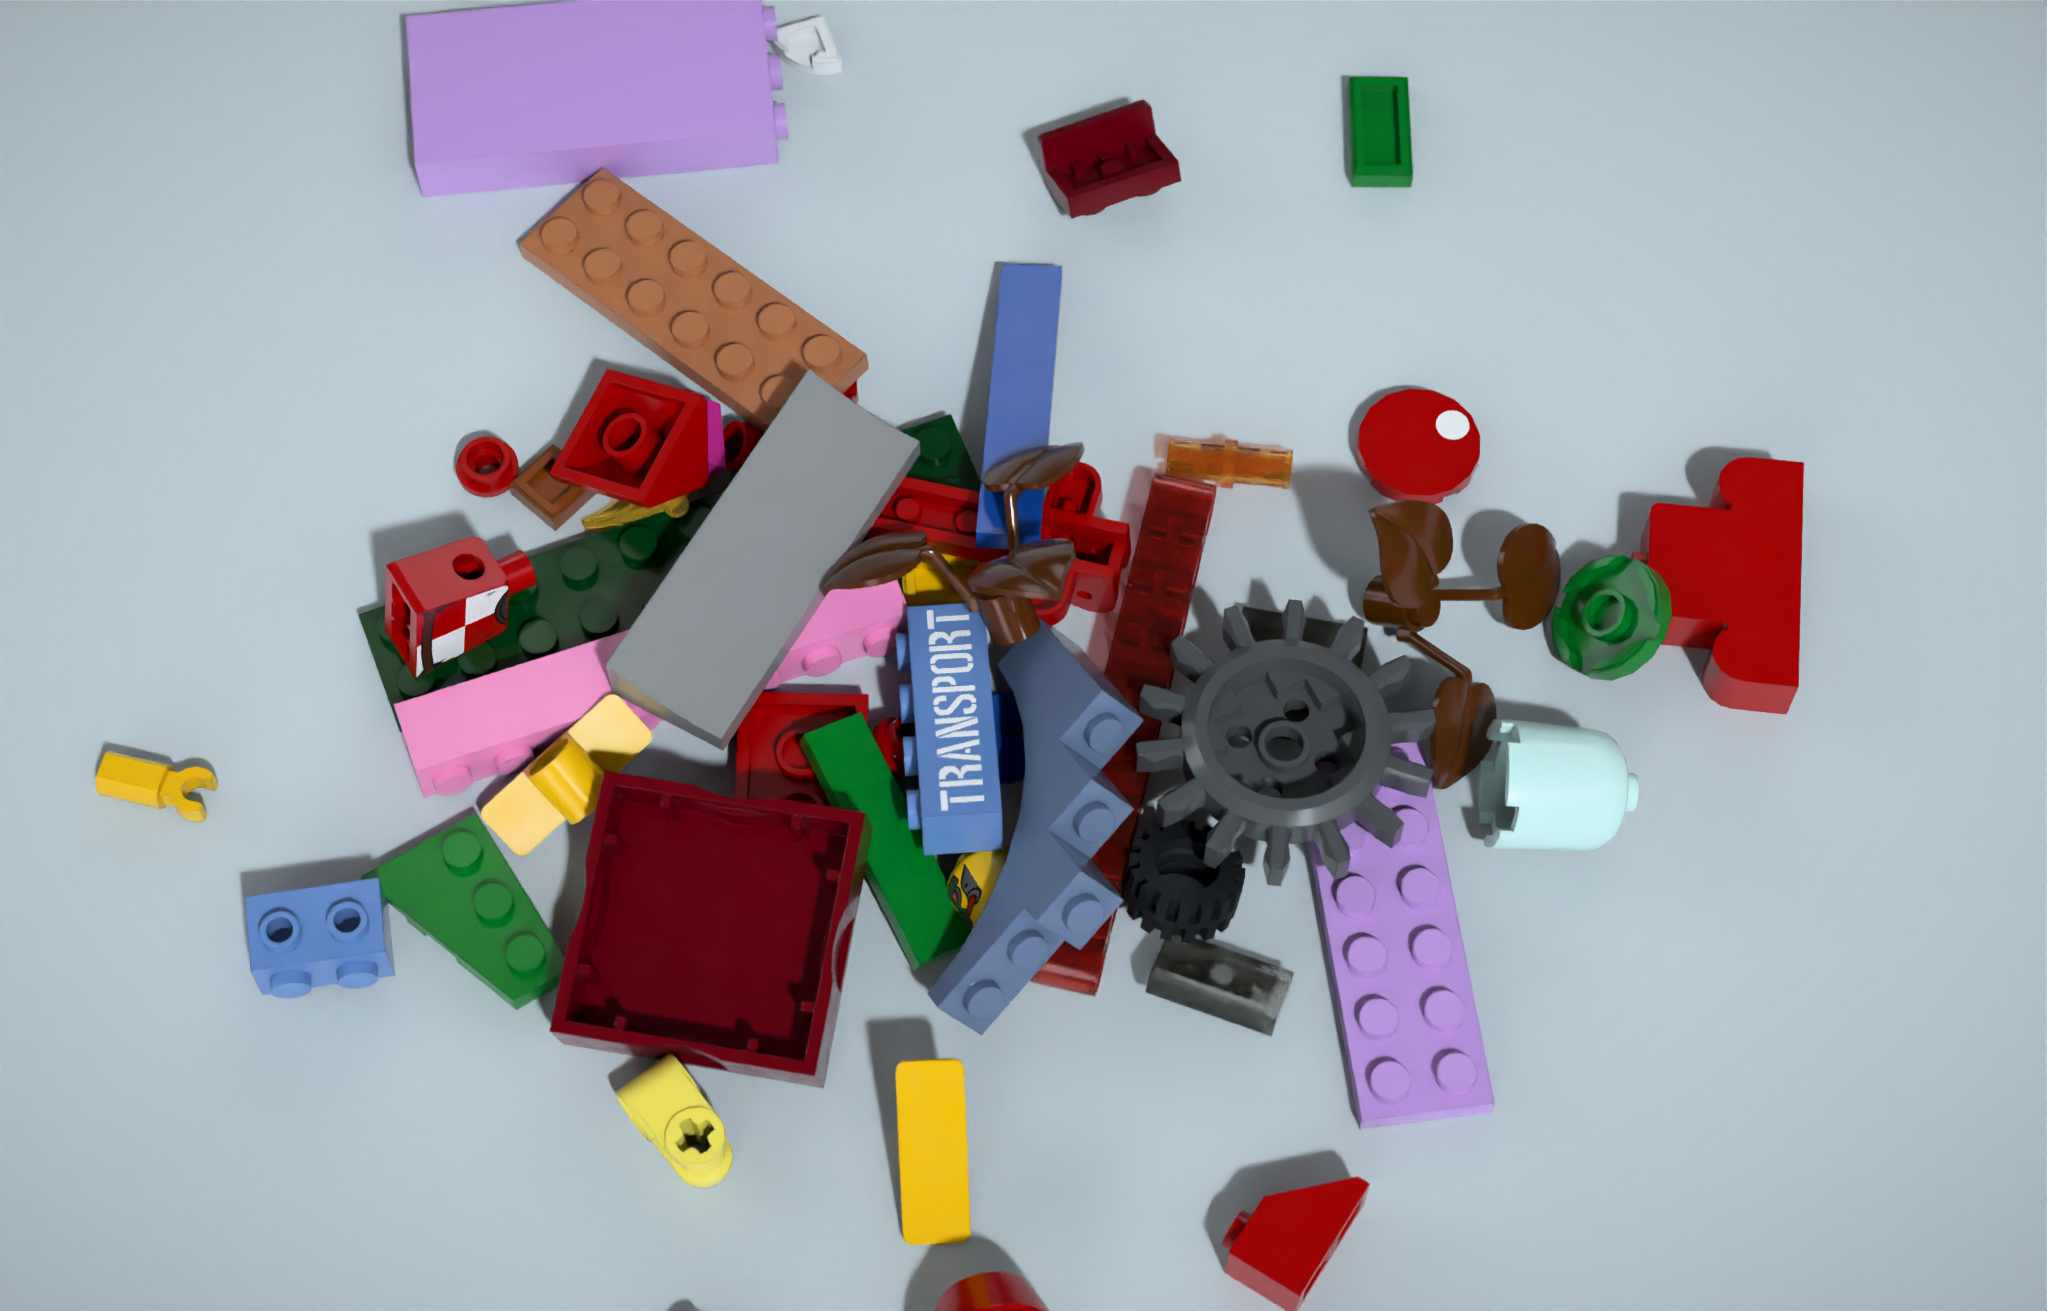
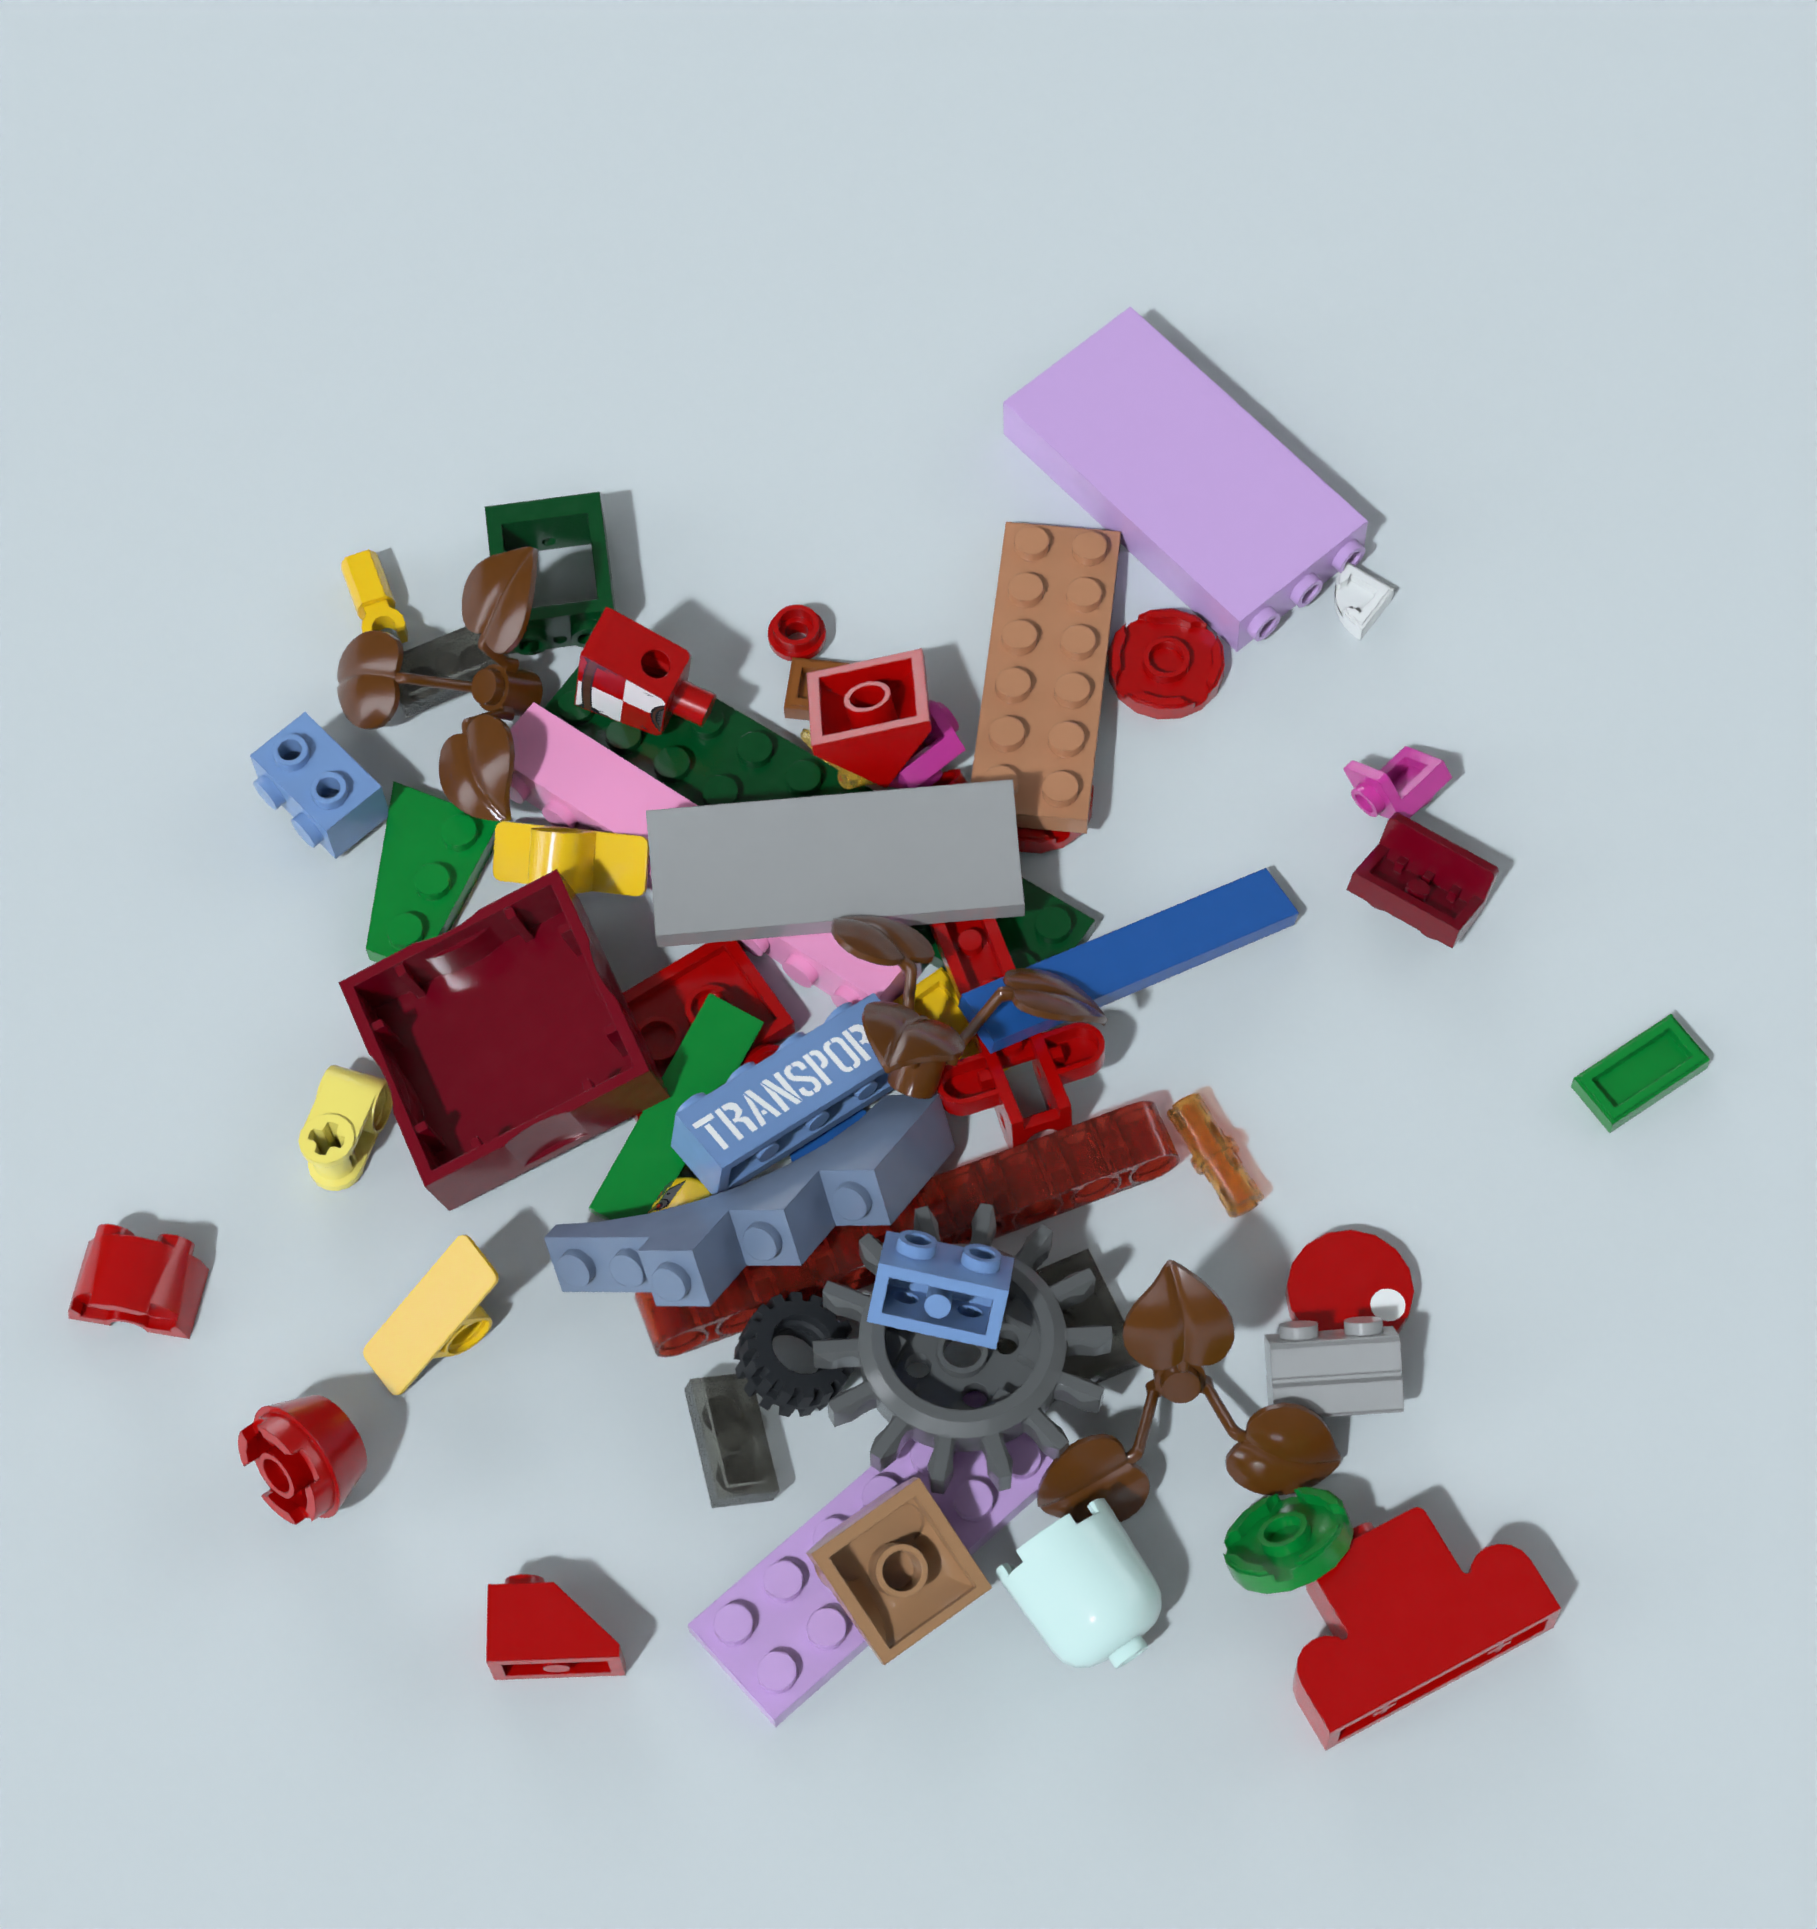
camera: 60 degrees right, 0 degrees up
(212, 586) = (555, 525): none -> dark green window
(281, 762) = (448, 656): none -> clear smoke plate
(429, 771) = (479, 762): none -> reddish brown plant
(752, 215) = (1166, 664): none -> red tile
(1006, 121) = (1400, 786): none -> dark pink bracket
(1252, 705) = (941, 1288): none -> medium blue brick
(1443, 912) = (898, 1569): none -> medium nougat slope
(1492, 490) = (1336, 1370): none -> light grey brick

